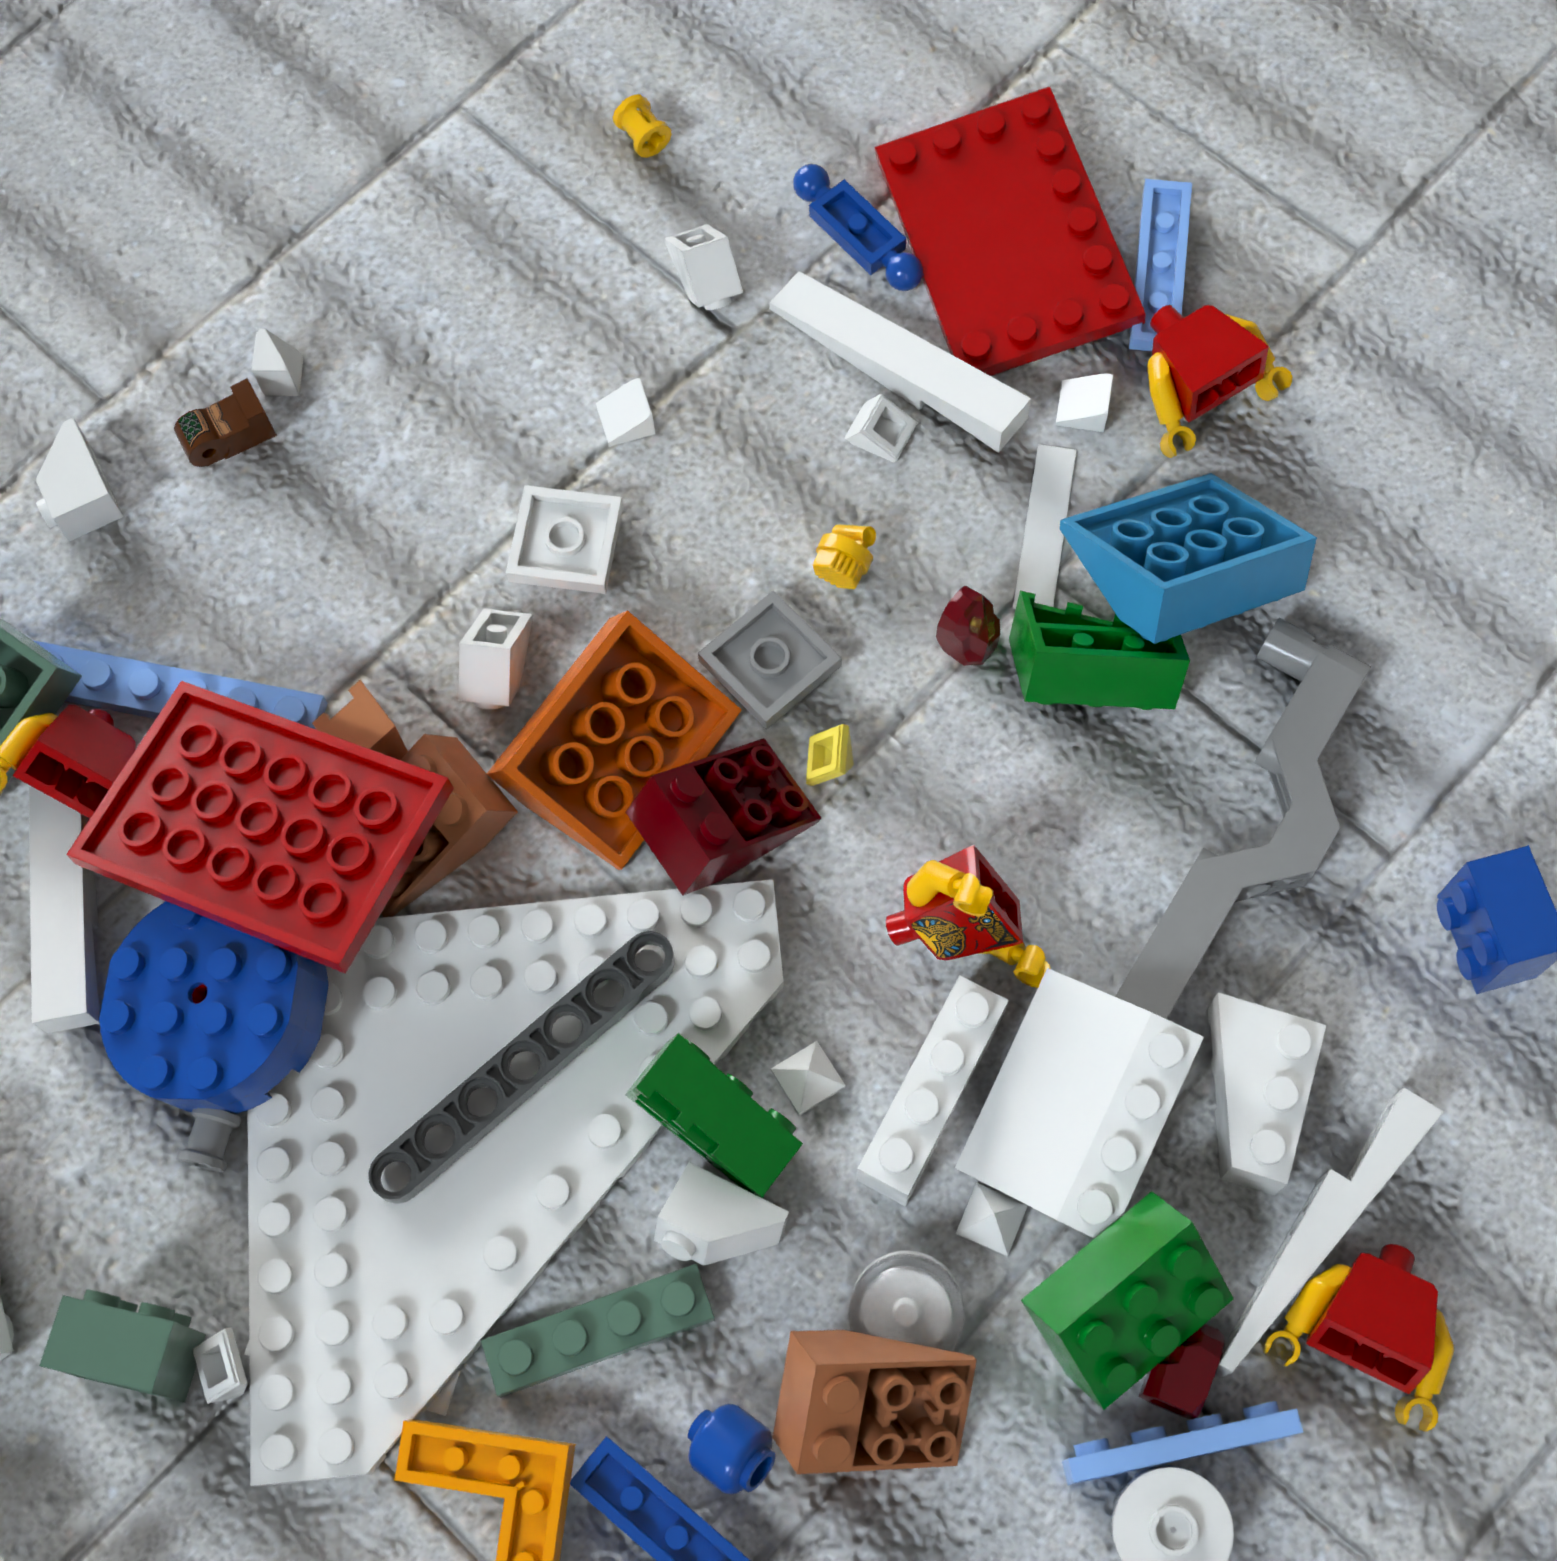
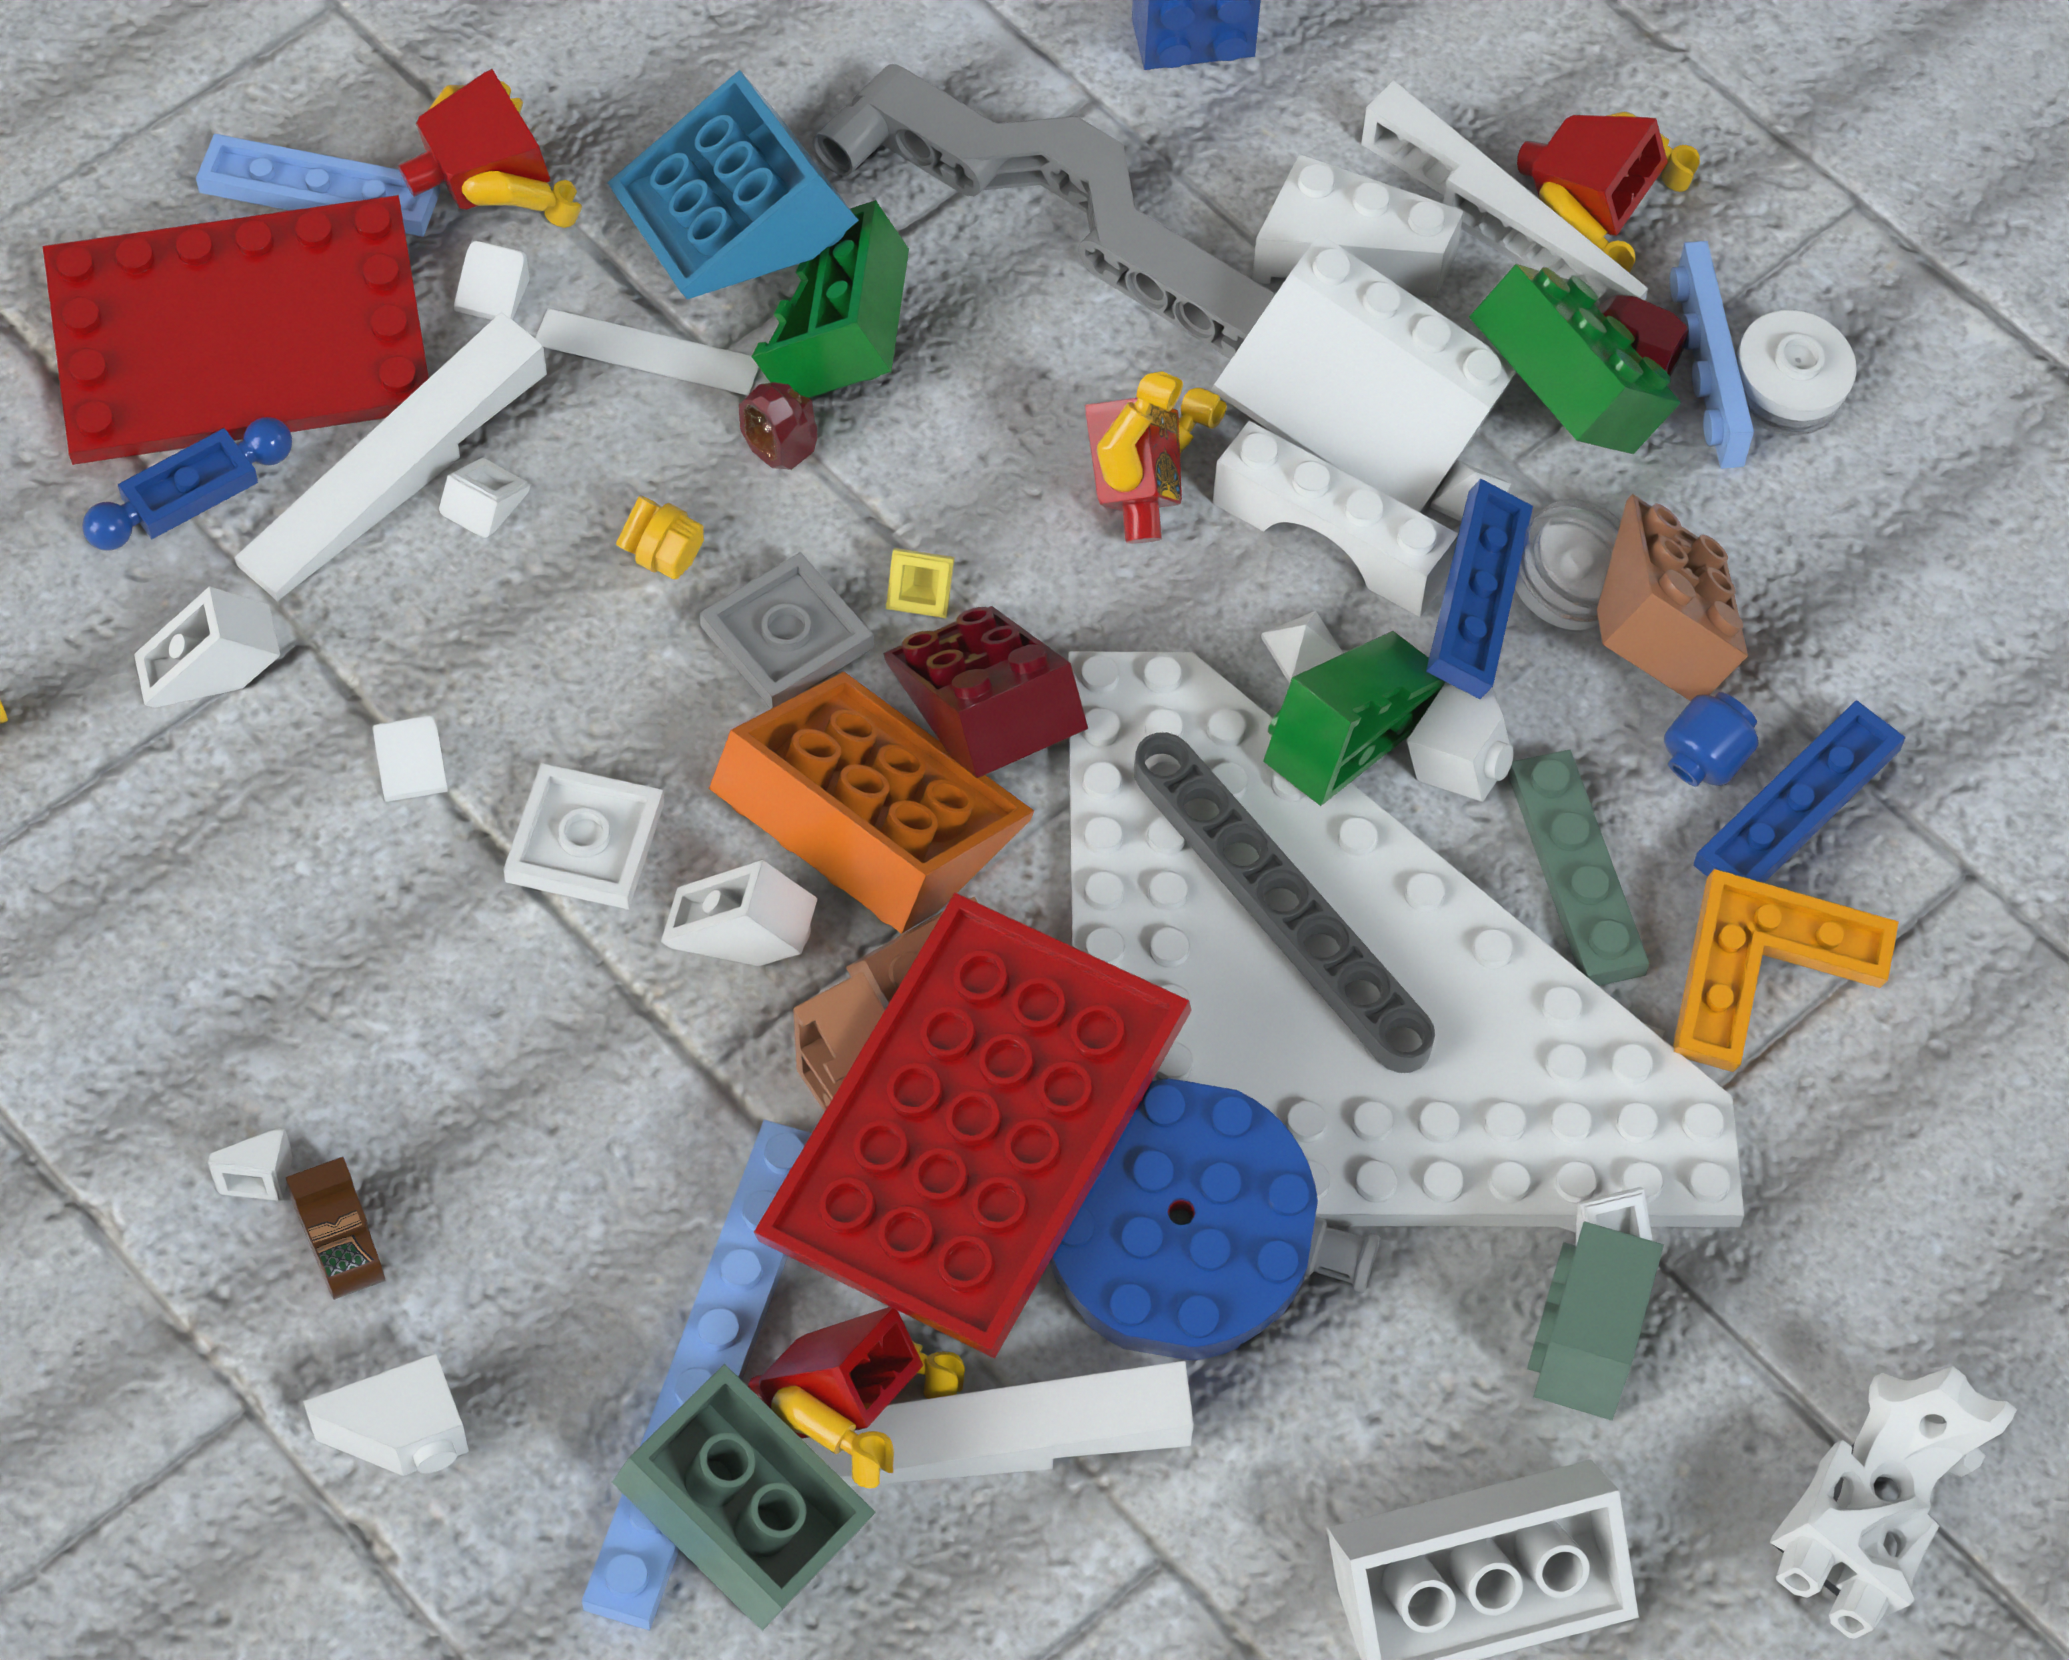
camera: 90 degrees left, 10 degrees down
(845, 1215) = (1479, 589): none -> blue plate

